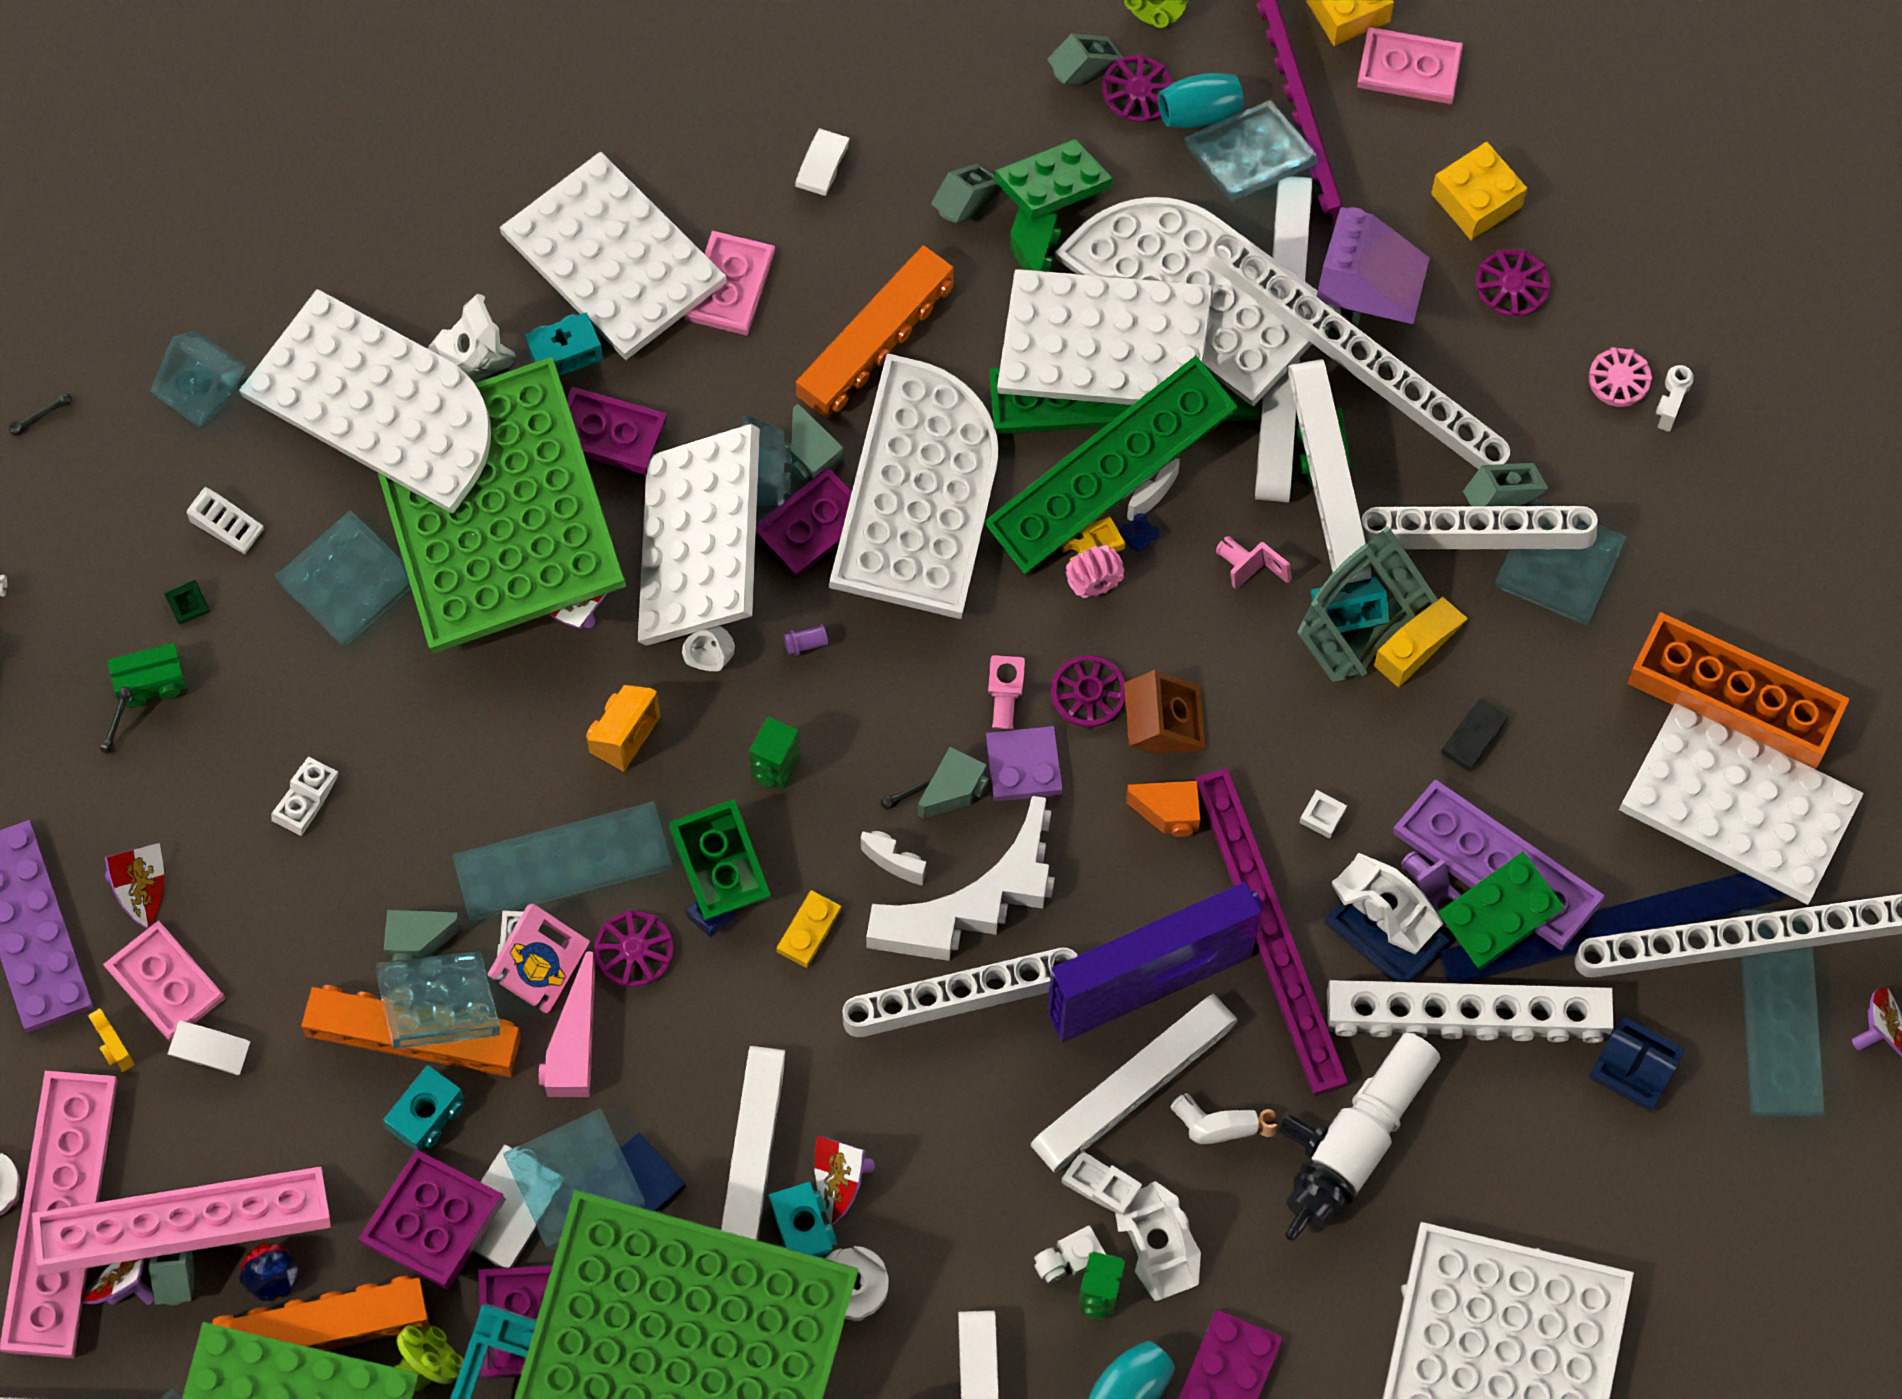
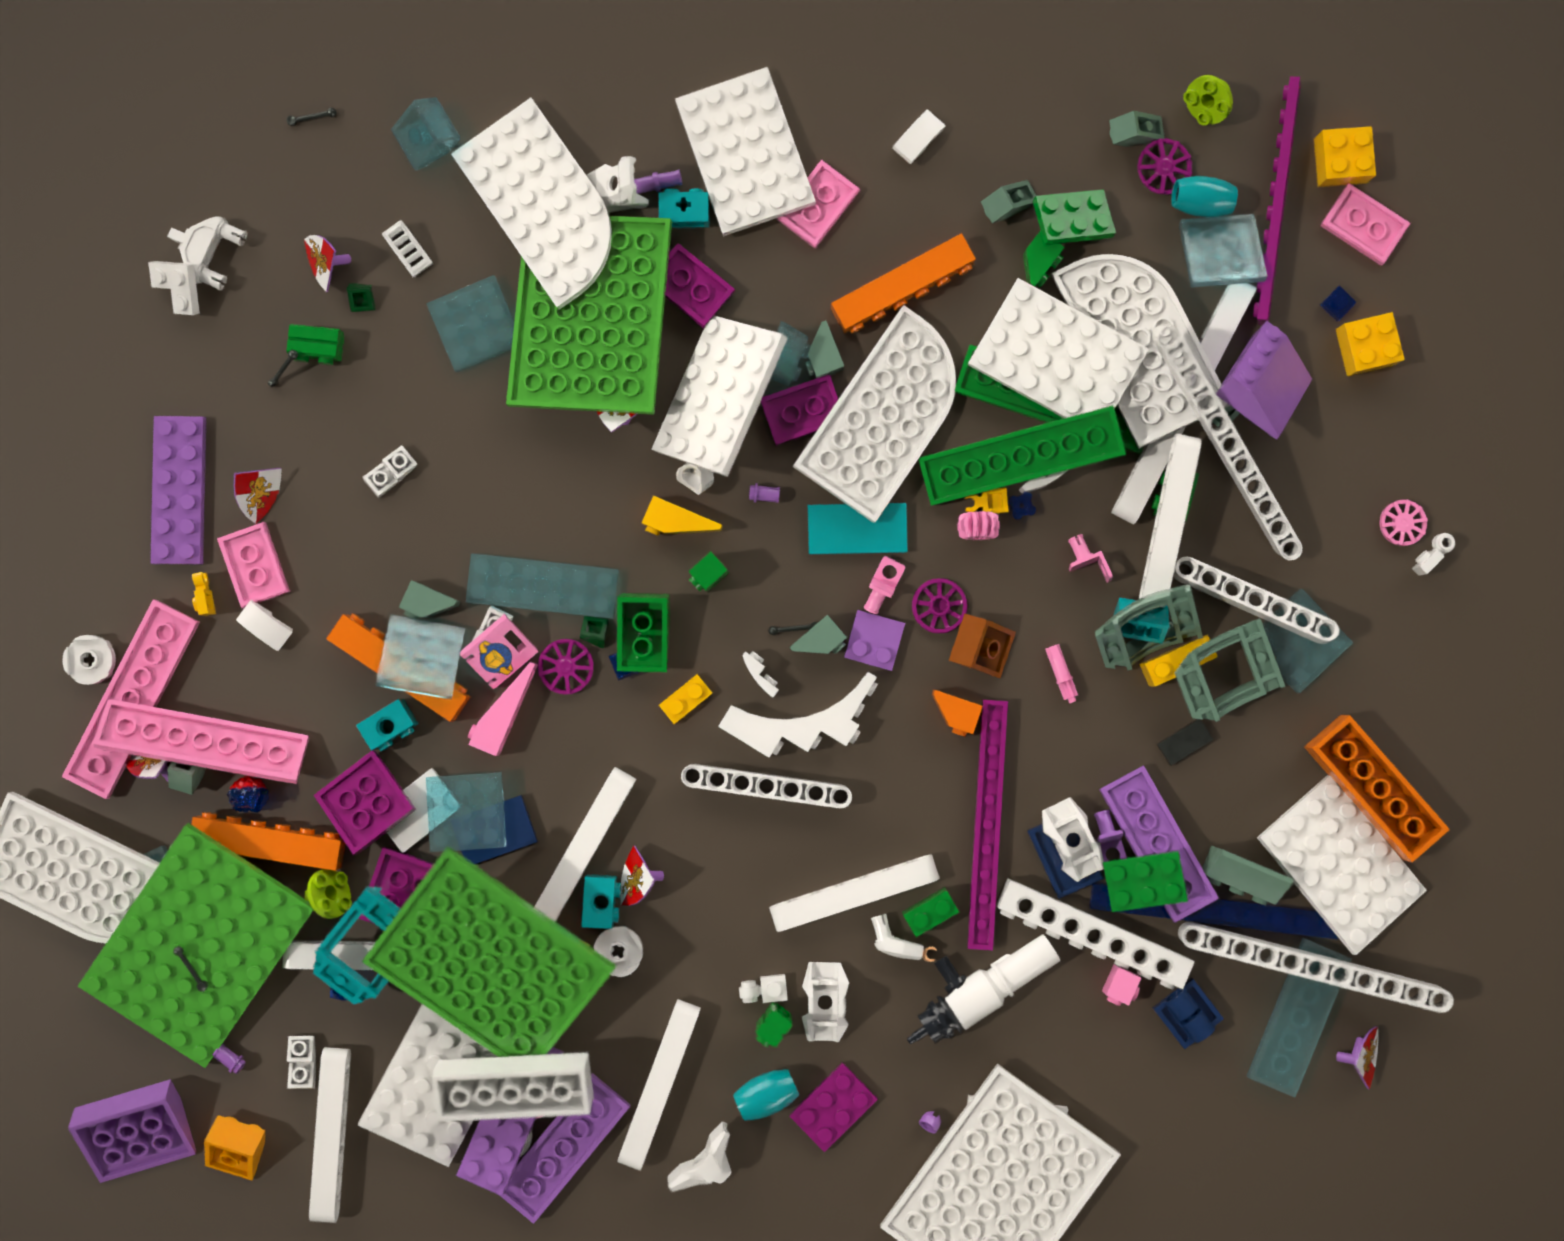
camera: 25 degrees right, 20 degrees up
(118, 569) = (323, 258): none -> shield
(517, 327) = (658, 181): none -> medium lavender pin
(624, 725) = (616, 509): light orange slope -> none
(654, 890) = (594, 630): none -> dark green slope
(701, 712) = (672, 519): none -> yellow slope
(936, 644) = (845, 531): none -> teal tile
(1100, 1183) = (804, 951): white slope -> none
(1153, 961) = (899, 830): dark purple panel -> none
(1244, 1065) = (930, 911): none -> green brick
(1281, 711) = (1062, 673): none -> bright pink piece
(1323, 814) = (1058, 758): white plate -> none
(1362, 1347) = (930, 1122): none -> medium lavender hinge
(1420, 162) = (1338, 303): none -> clear blue plate
(1505, 485) = (1285, 576): sand green slope -> none
(1512, 281) = (1362, 421): magenta wheel -> none
(1517, 592) = (1260, 660): none -> sand green wedge
(1535, 1061) = (1121, 986): none -> bright pink brick
(1627, 857) = (1245, 876): none -> sand green slope

